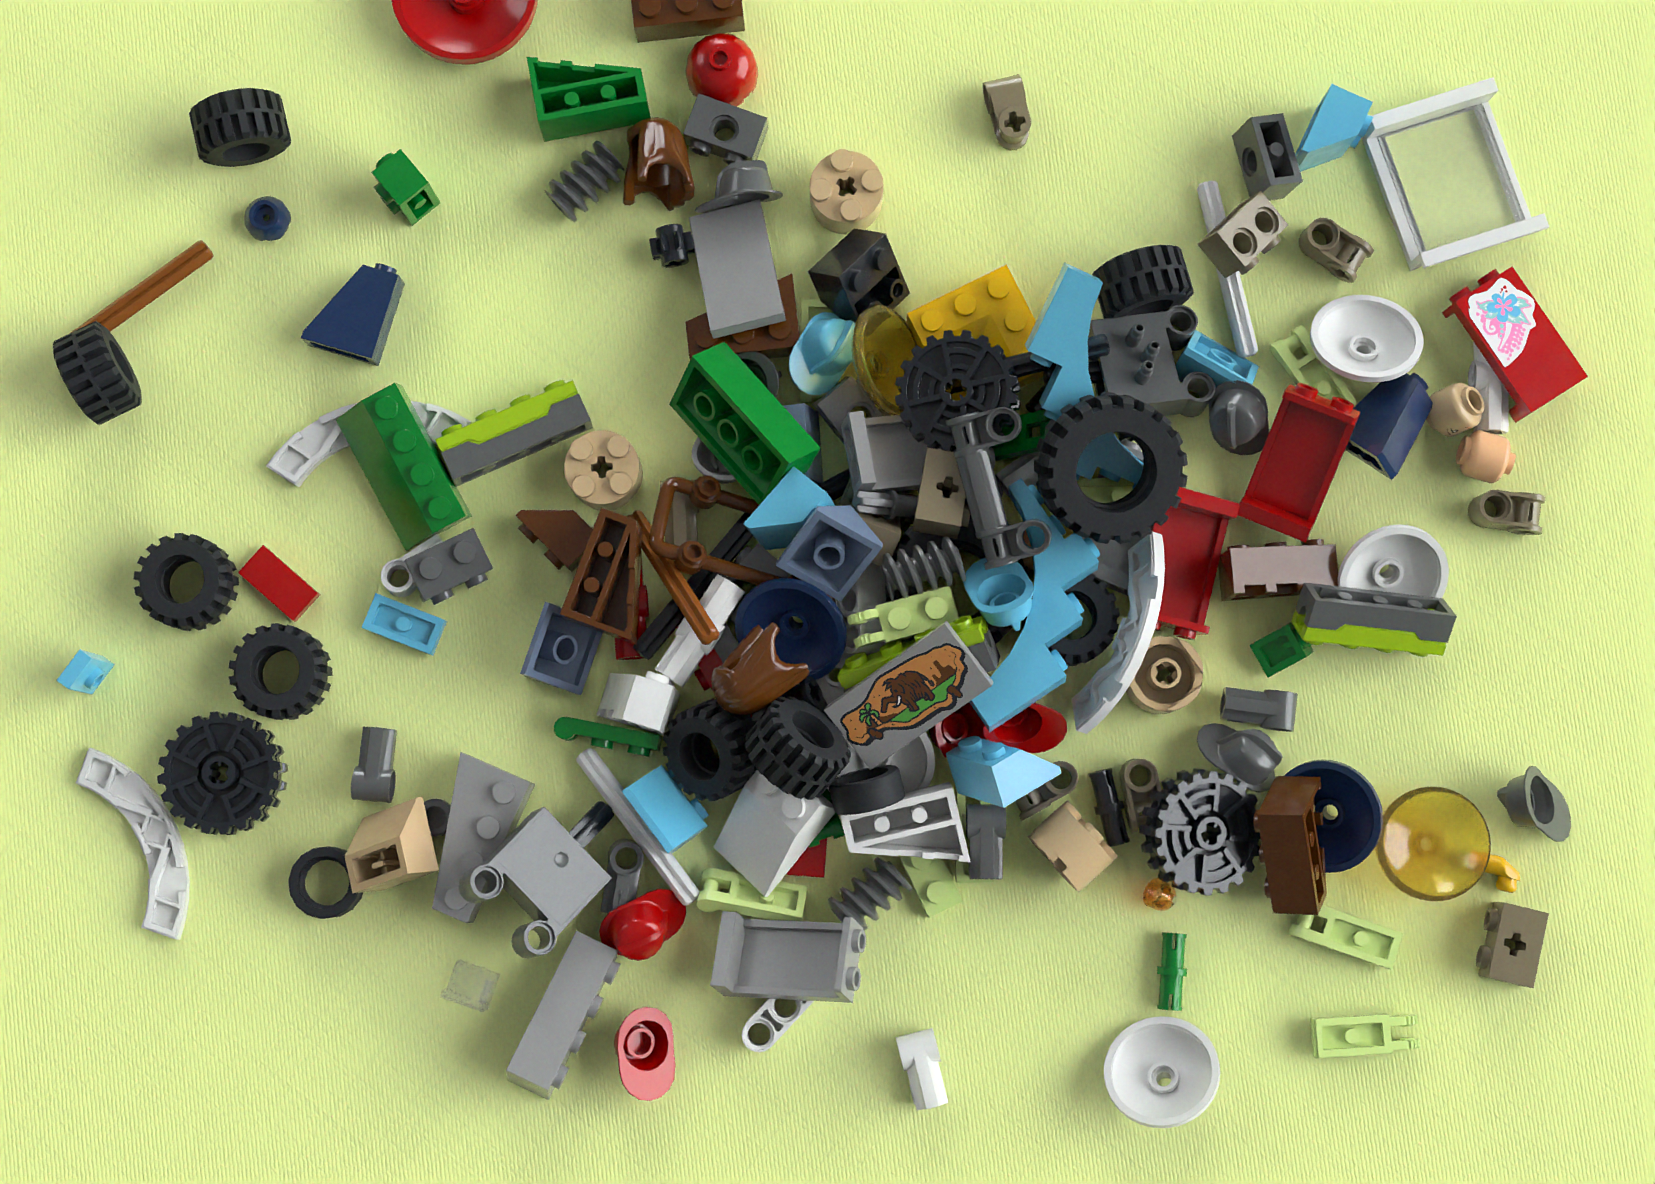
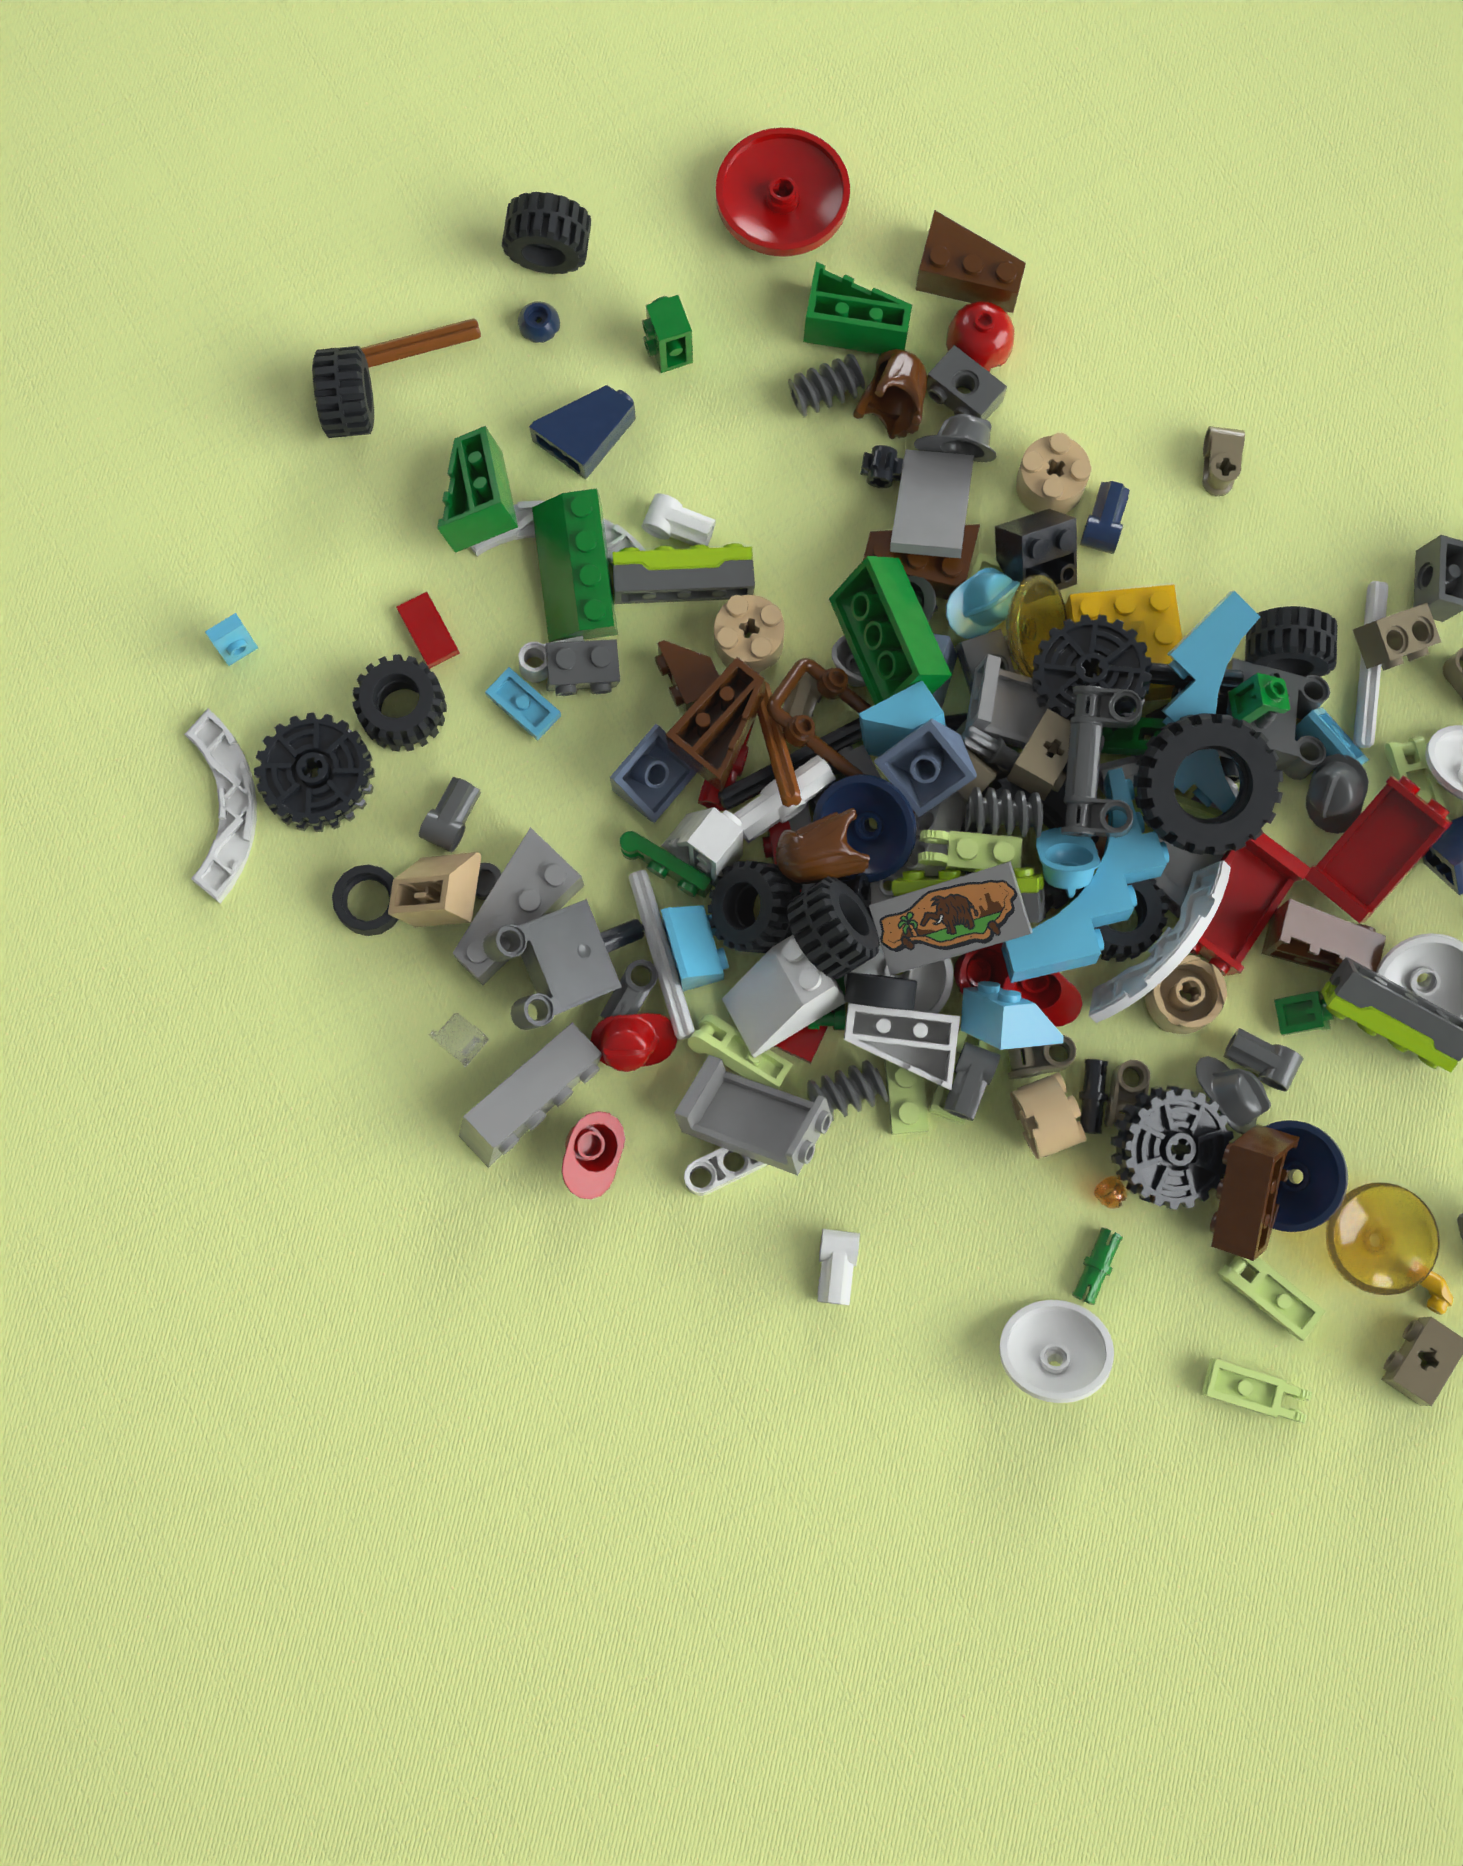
camera: 20 degrees right, 5 degrees down
(161, 565) = (337, 573): black tyre -> none
(275, 426) = (478, 492): none -> green wedge
(477, 379) = (669, 519): none -> white piece
(915, 222) = (1104, 525): none -> dark blue piece
(1129, 358) = (1258, 696): none -> green bracket

